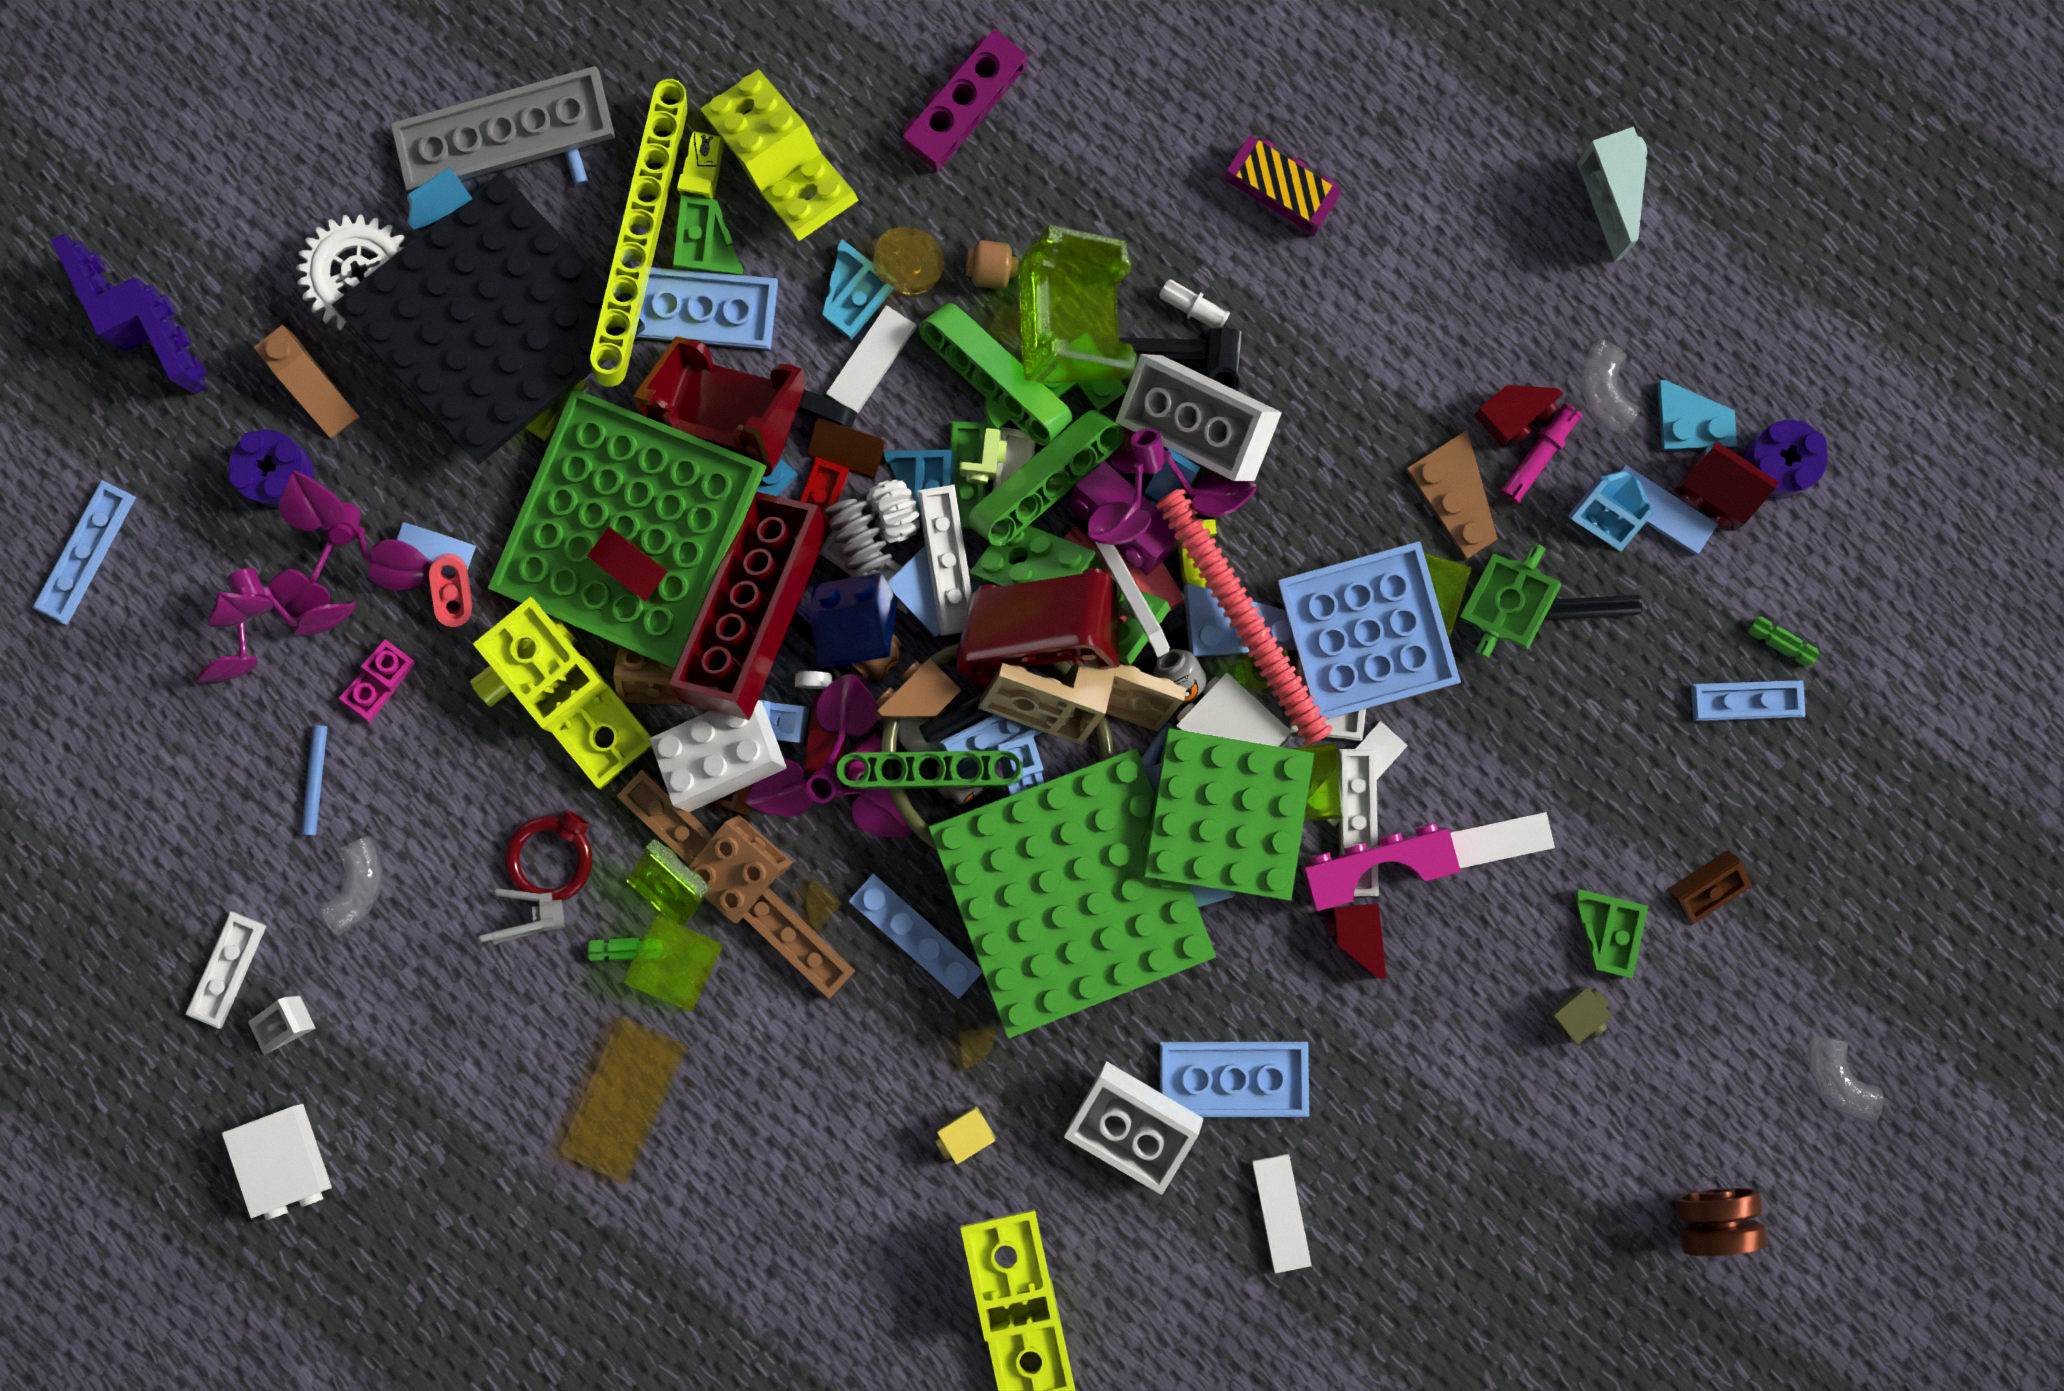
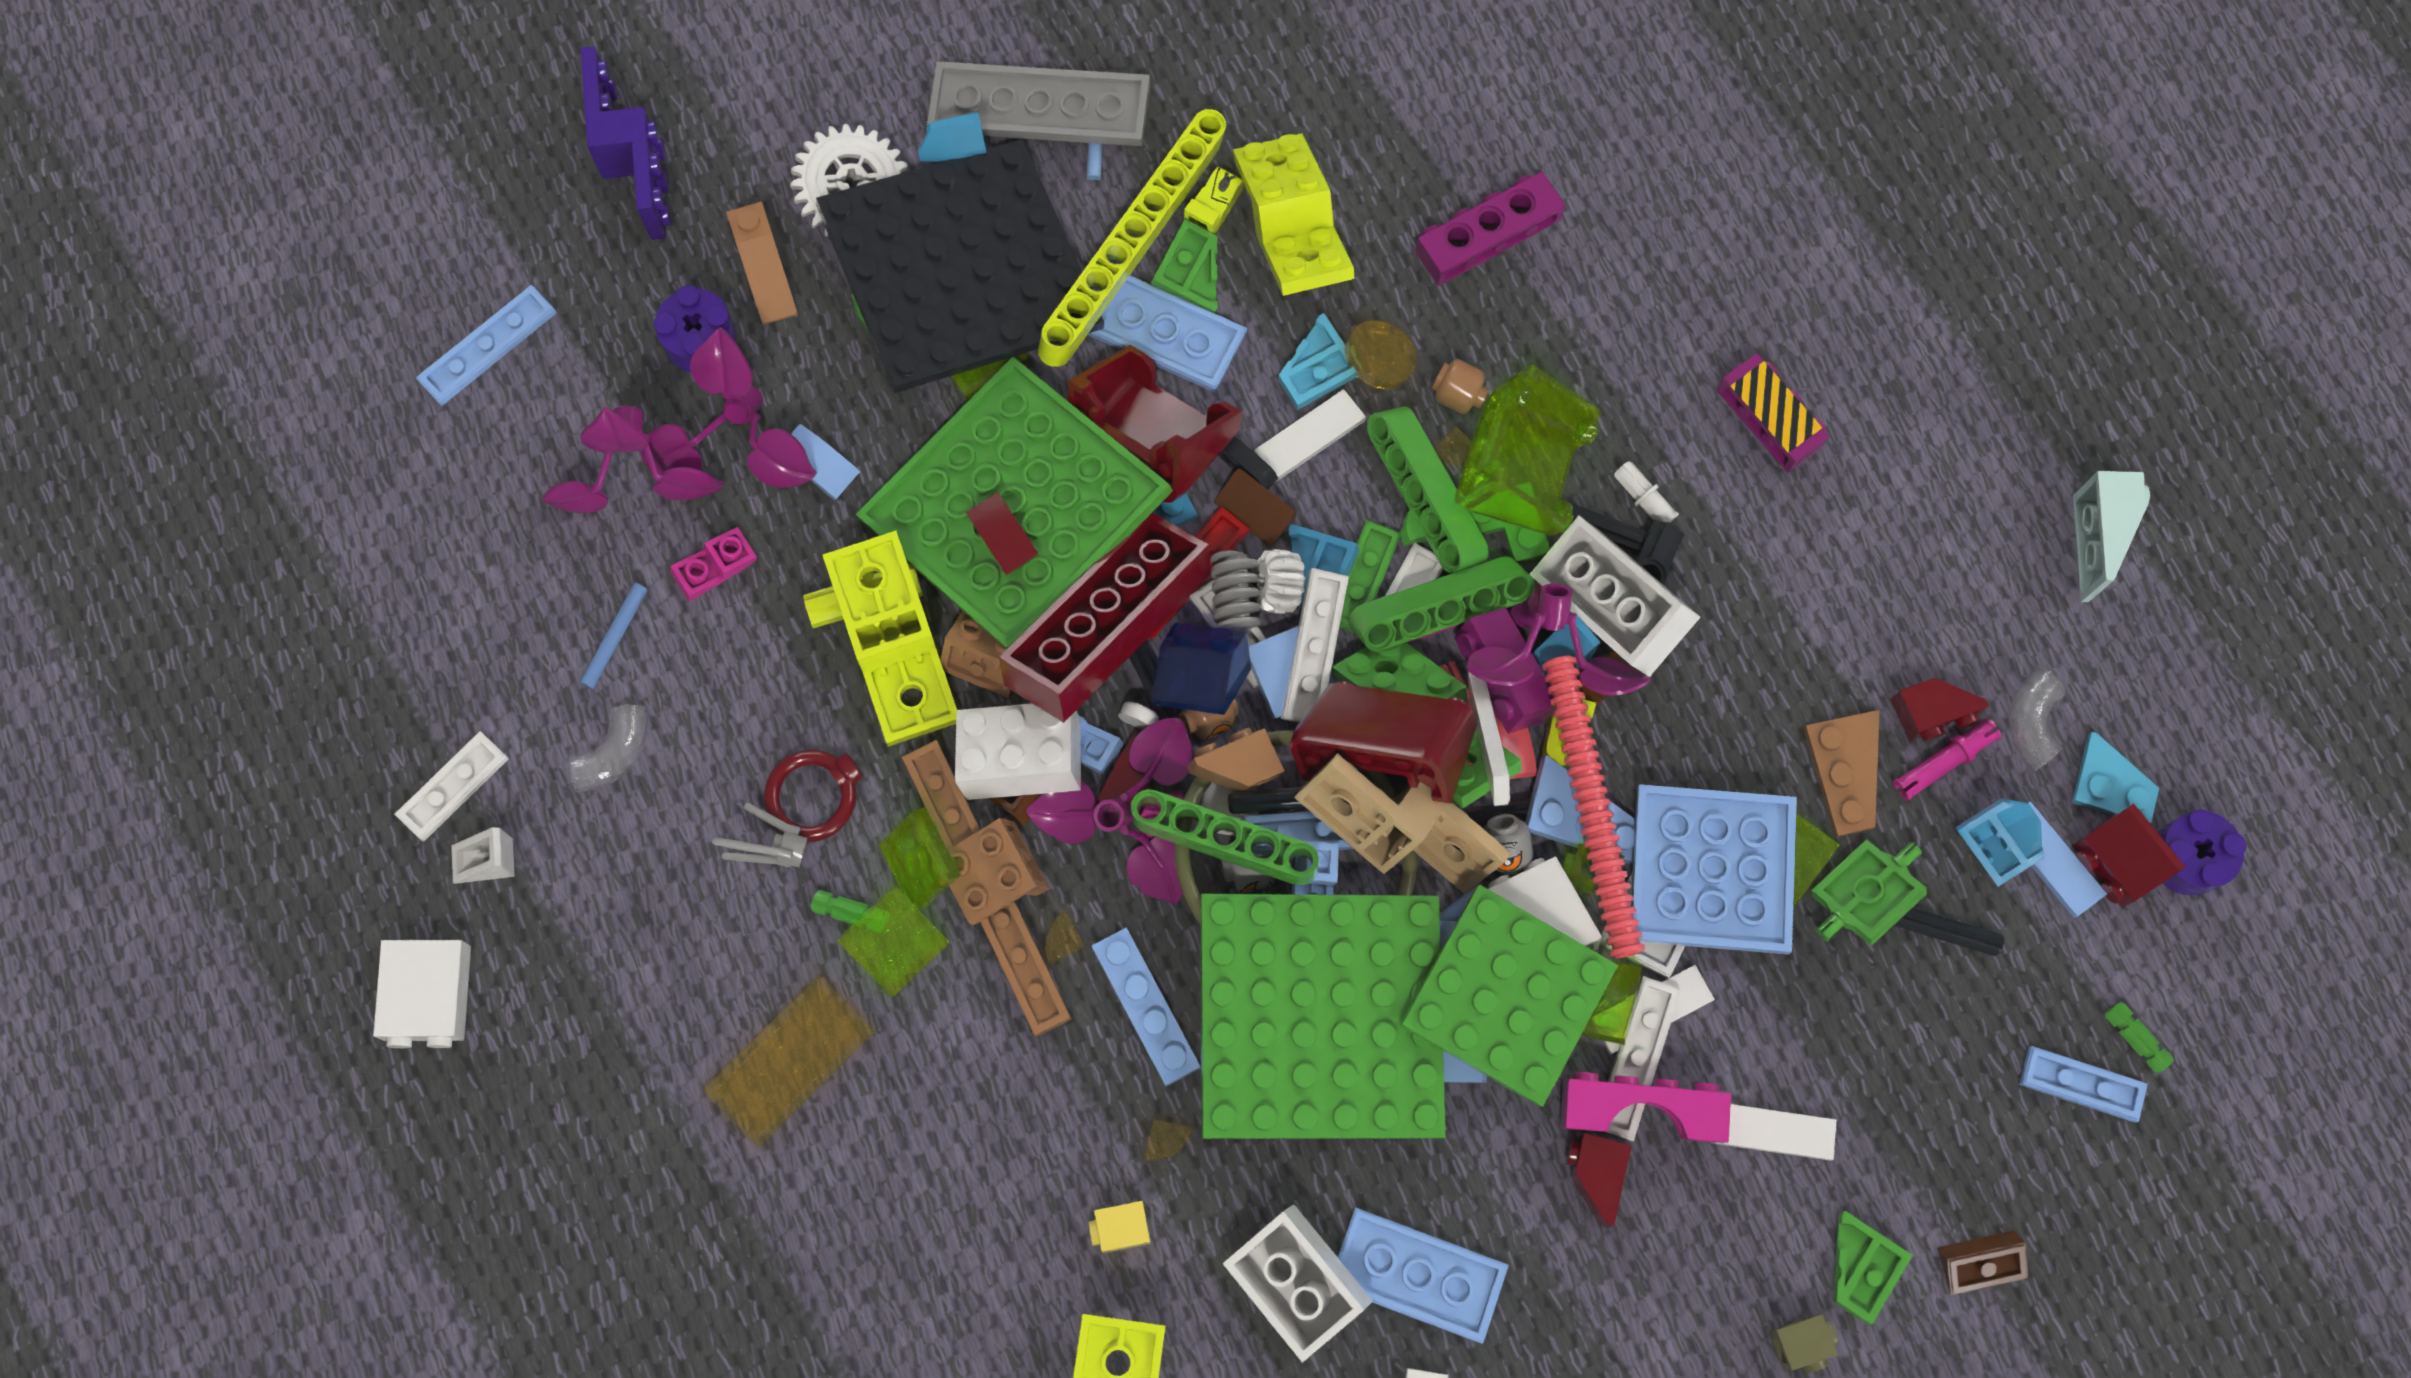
camera: 15 degrees right, 10 degrees down
(450, 588) = (819, 501): coral plate -> none
(993, 453) = (1385, 575): yellowish green bracket -> none

